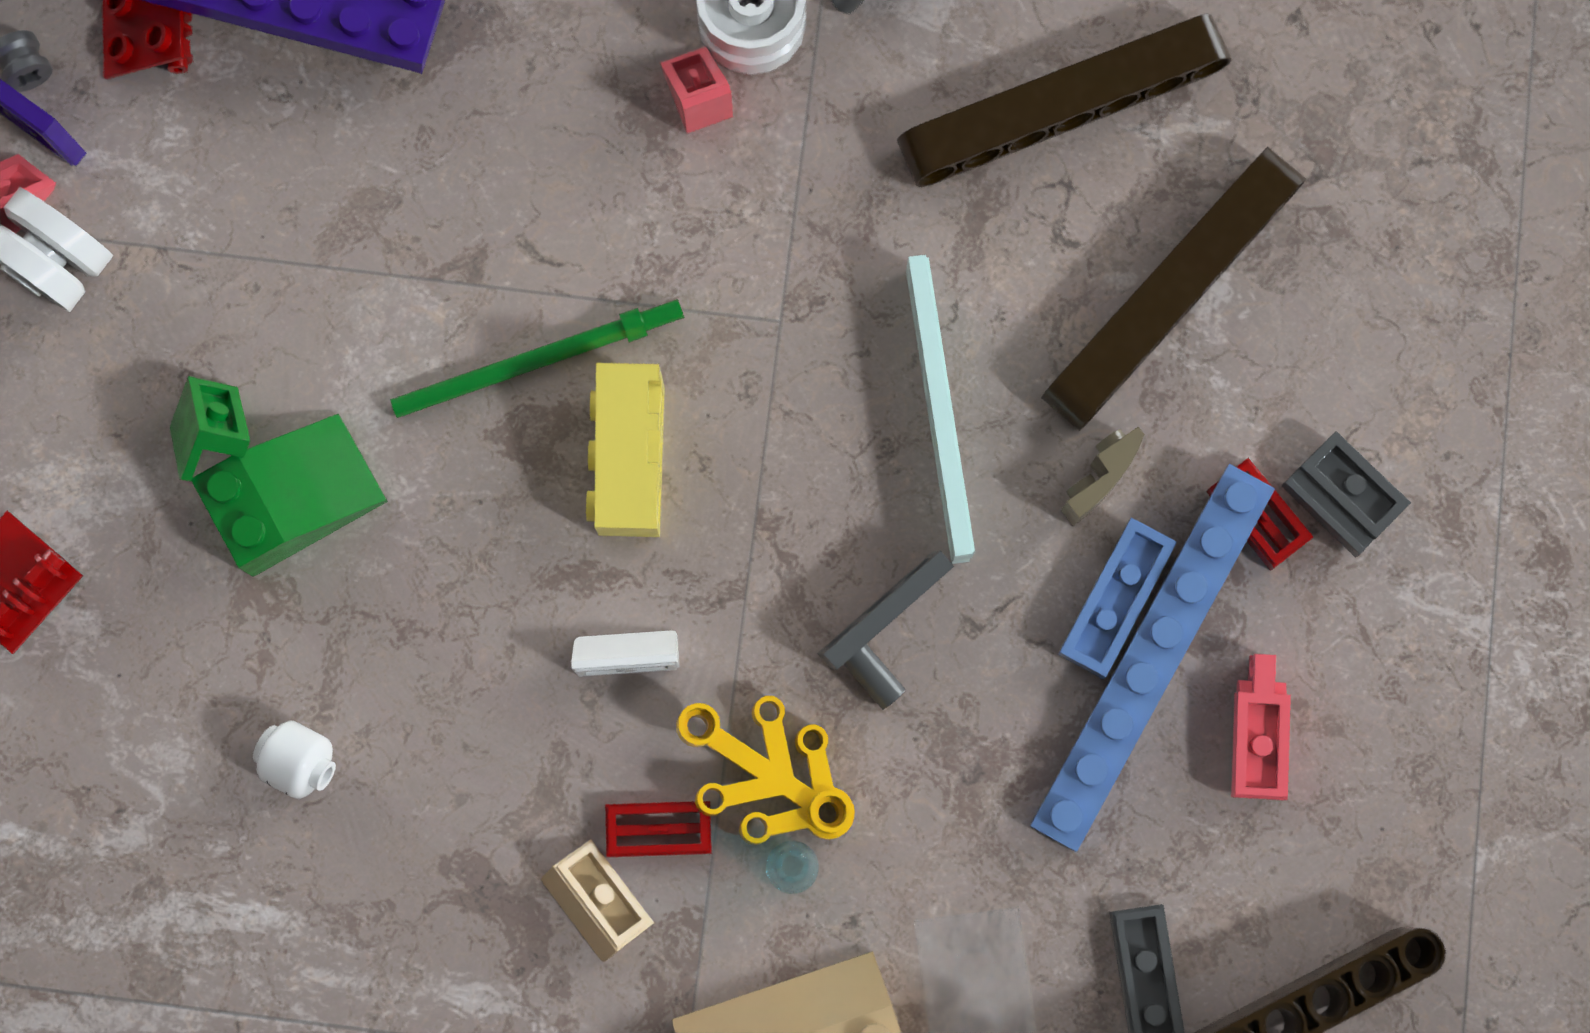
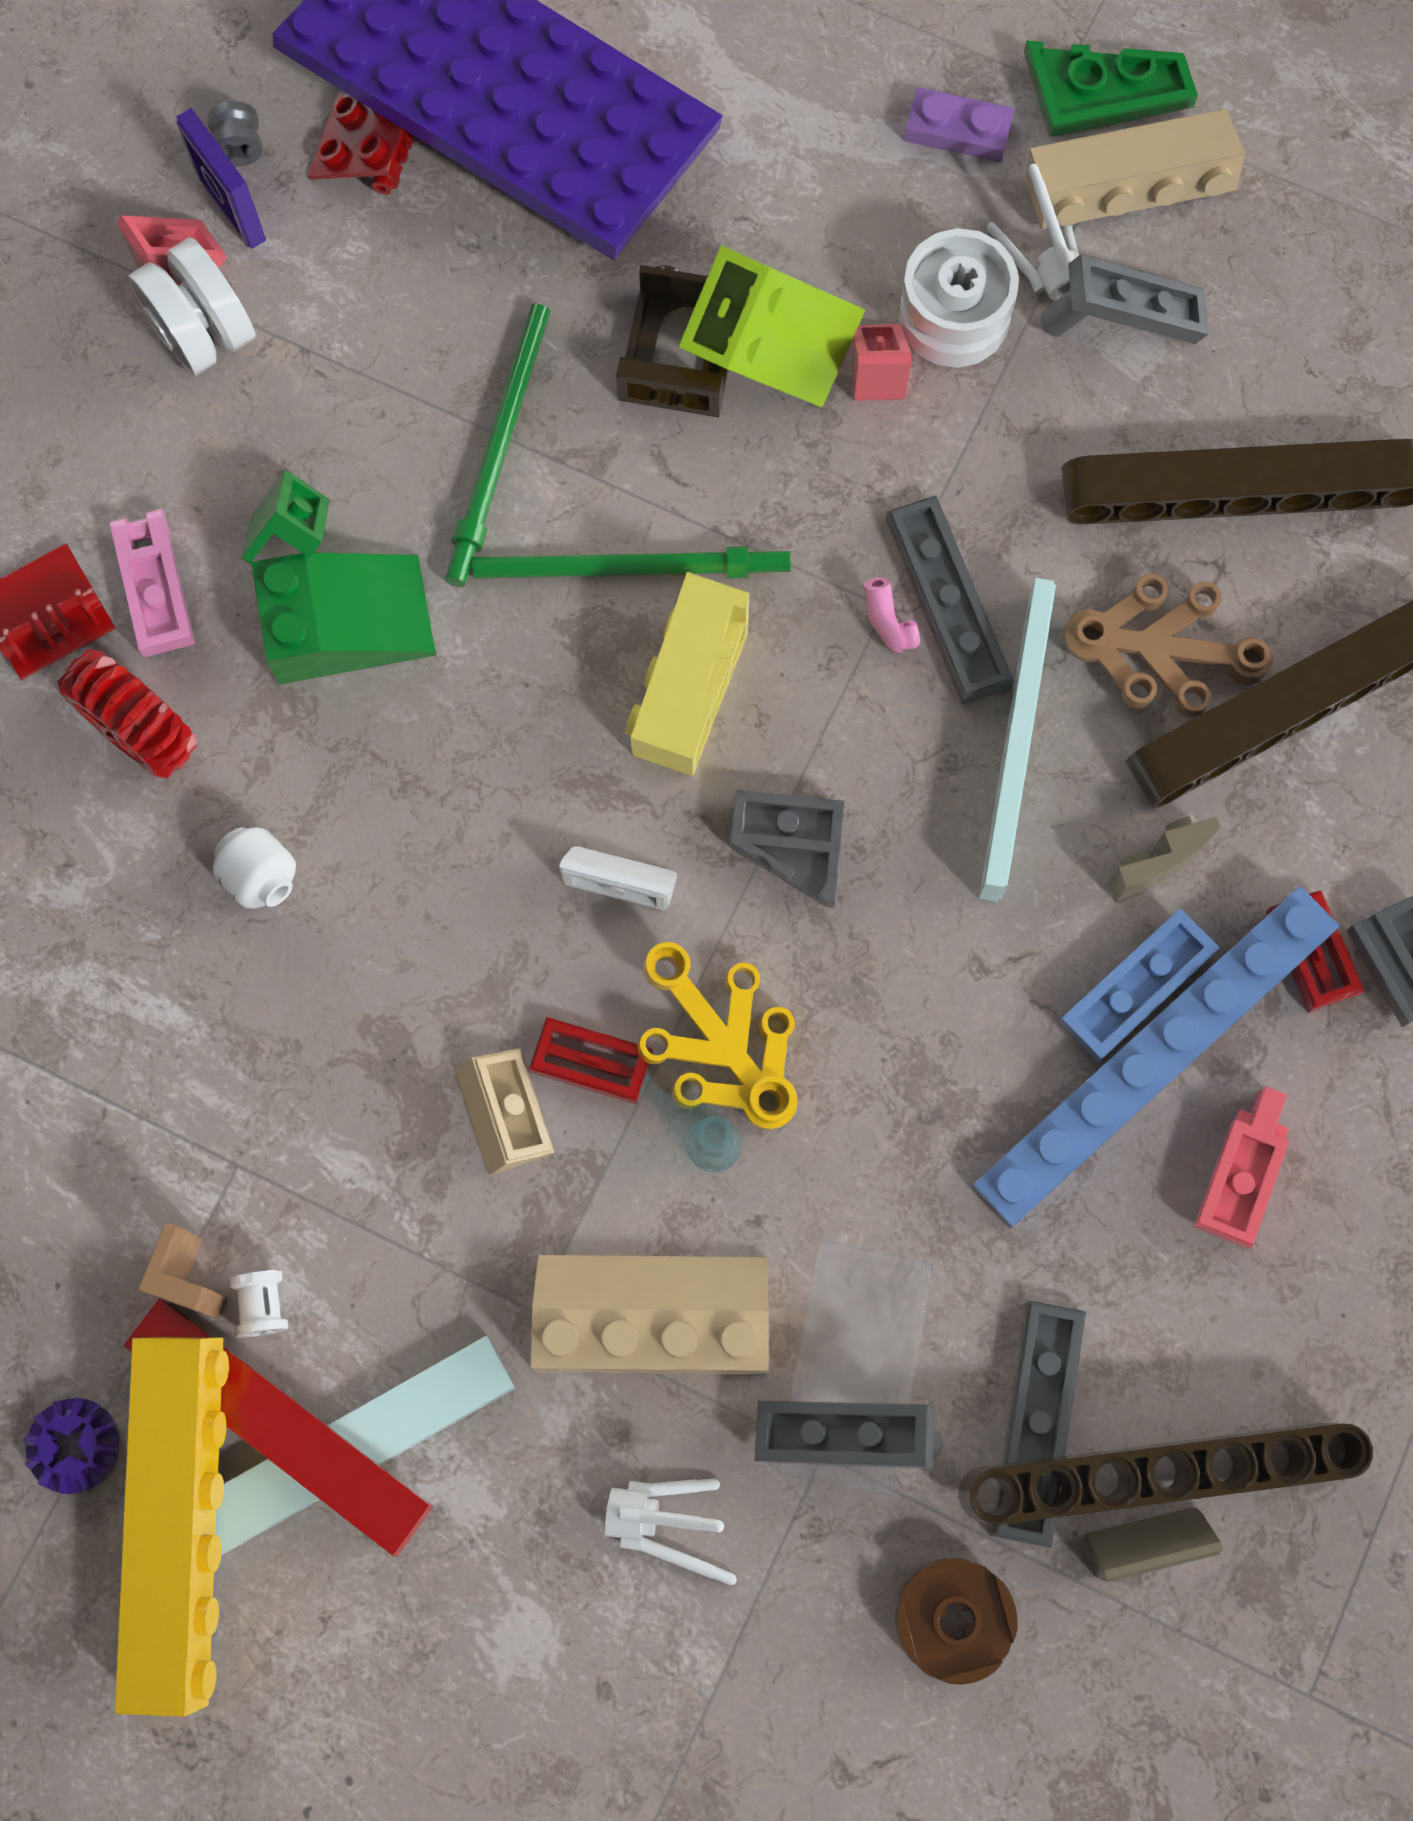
camera: 20 degrees right, 5 degrees down
(102, 523) = (152, 584): none -> bright pink plate
(127, 658) = (127, 713): none -> red gear
(378, 377) = (470, 530): none -> green bar
(473, 91) = (659, 384): none -> dark brown panel
(589, 96) = (771, 327): none -> lime slope
(769, 568) = (791, 839): none -> flat silver wing
(782, 334) = (883, 618): none -> bright pink arm
(835, 296) = (949, 599): none -> dark grey tile
(851, 645) = (849, 941): dark grey piece -> none
(1036, 279) = (1159, 646): none -> medium nougat plant

